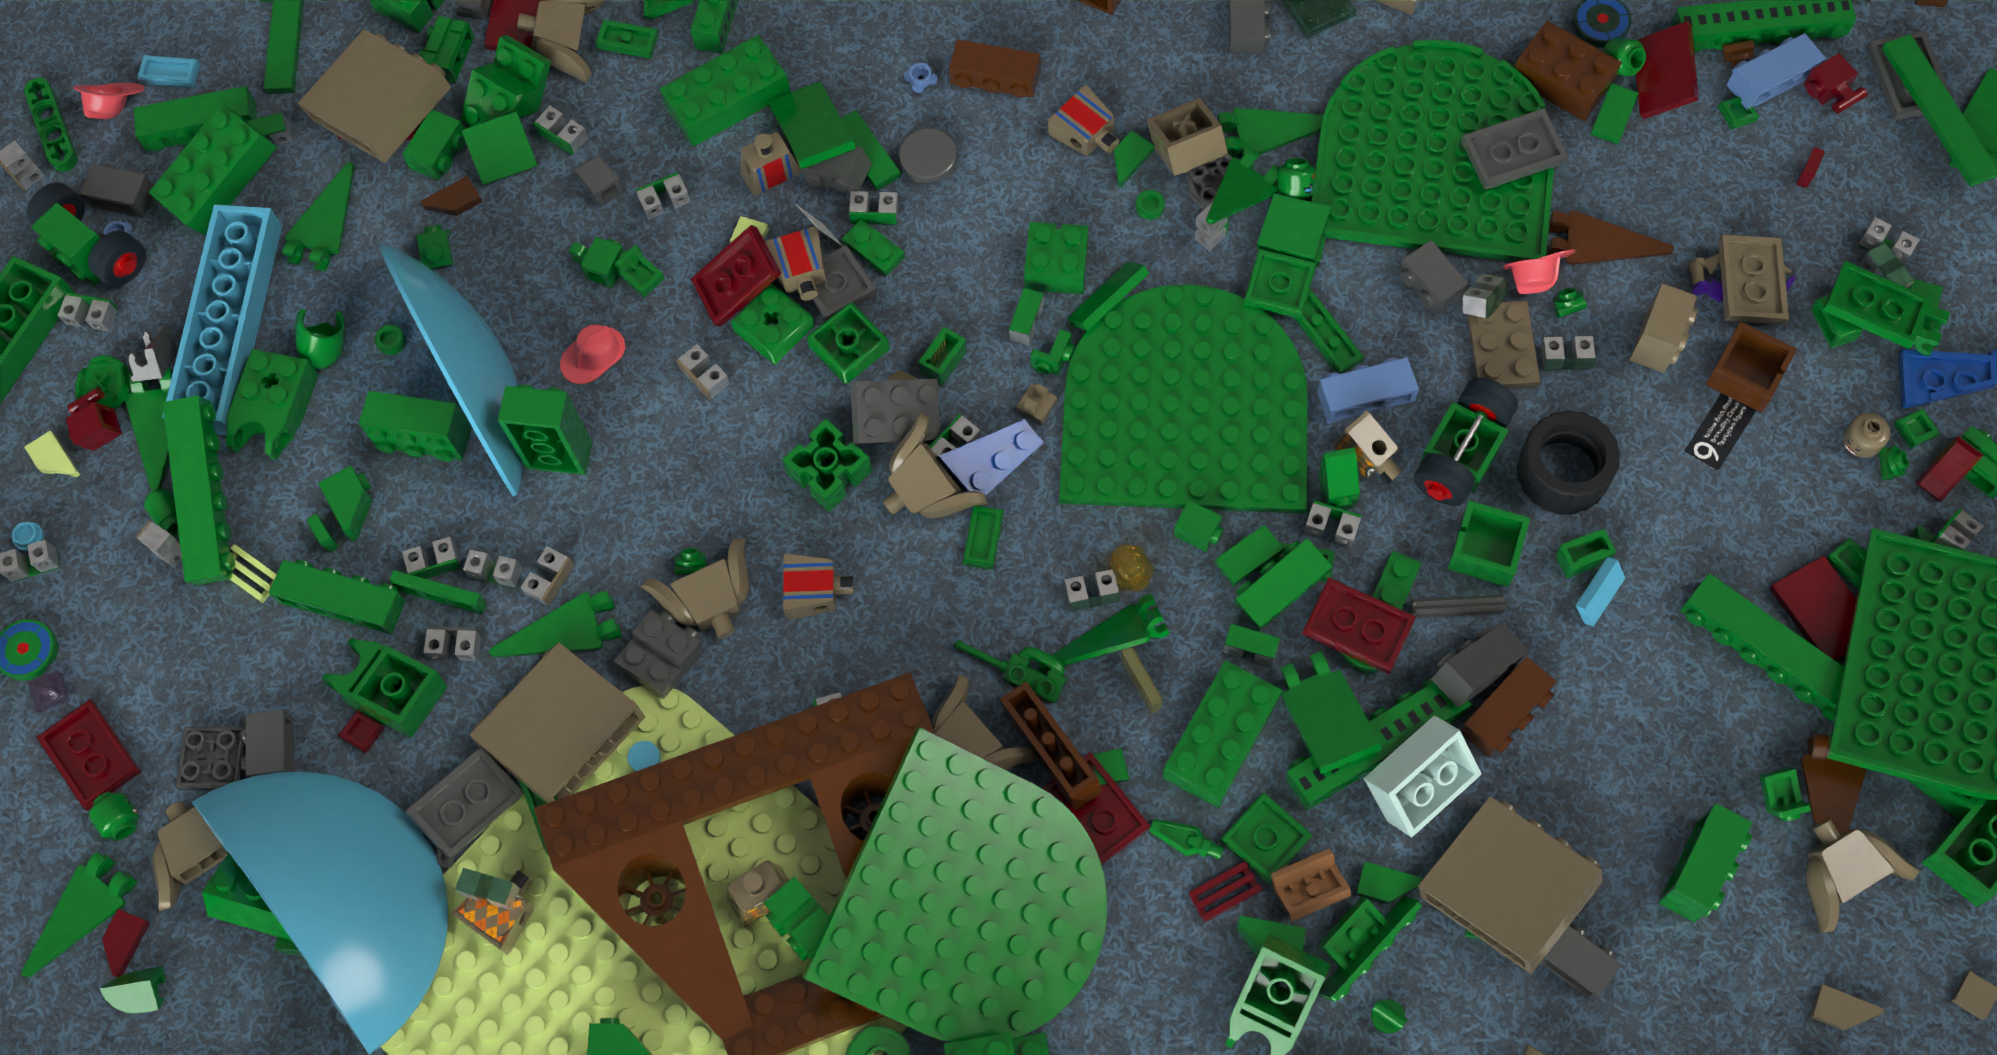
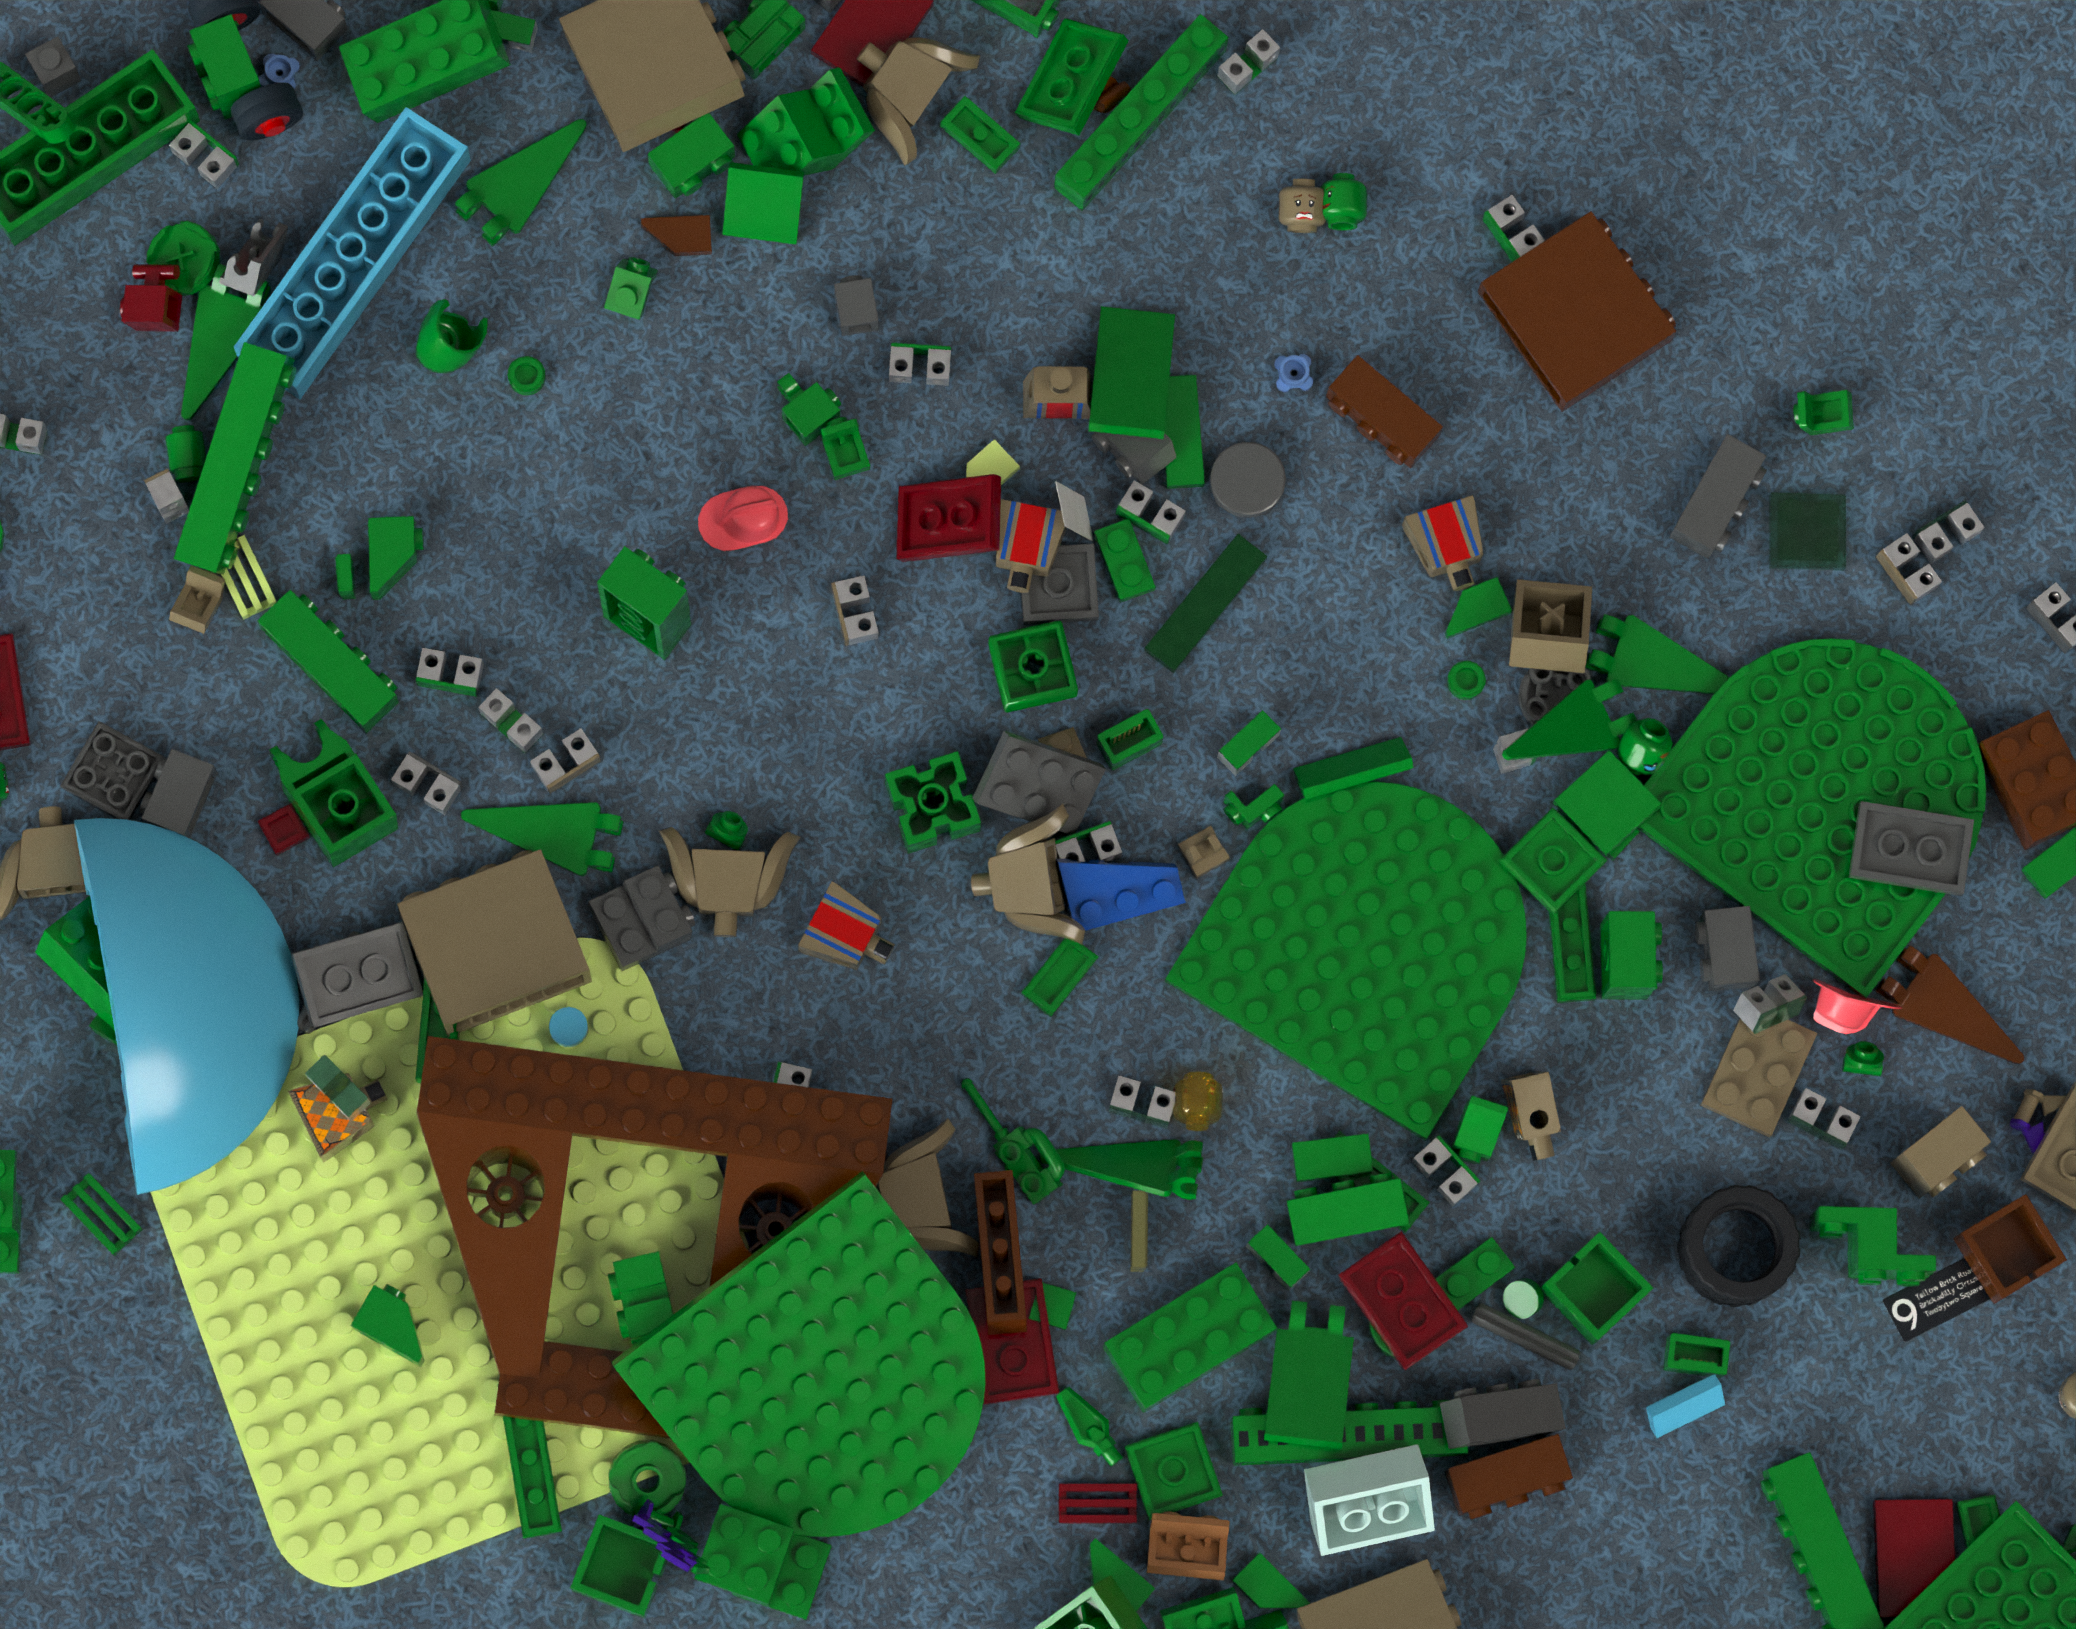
camera: 15 degrees right, 10 degrees up
(25, 534) = (23, 400): medium azure plate -> none
(50, 456) = (88, 314): yellowish green tile -> none
(220, 603) = (198, 599): none -> dark tan bracket
(270, 401) = (350, 394): green brick -> none
(415, 426) = (505, 508): green brick -> none
(438, 592) = (439, 716): green tile -> none
(464, 352) = (601, 451): medium azure brick -> none
(569, 138) = (832, 205): flat silver piece -> none
(725, 90) = (1058, 269): green brick -> none
(752, 889) = (613, 1240): dark tan torso -> none
(771, 339) = (950, 615): green brick -> none
(944, 246) = (1205, 603): none -> dark green tile
(1056, 258) = (1320, 691): green piece -> none
(1199, 526) = (1298, 1095): green brick -> none
(1367, 389) = (1575, 1038): medium blue brick -> none
(1370, 312) = (1629, 955): none -> green brick
(1440, 580) = (1523, 1298): none -> tile
(1466, 442) = (1639, 1164): brick -> none
(1658, 411) = (1872, 1244): none -> green bracket

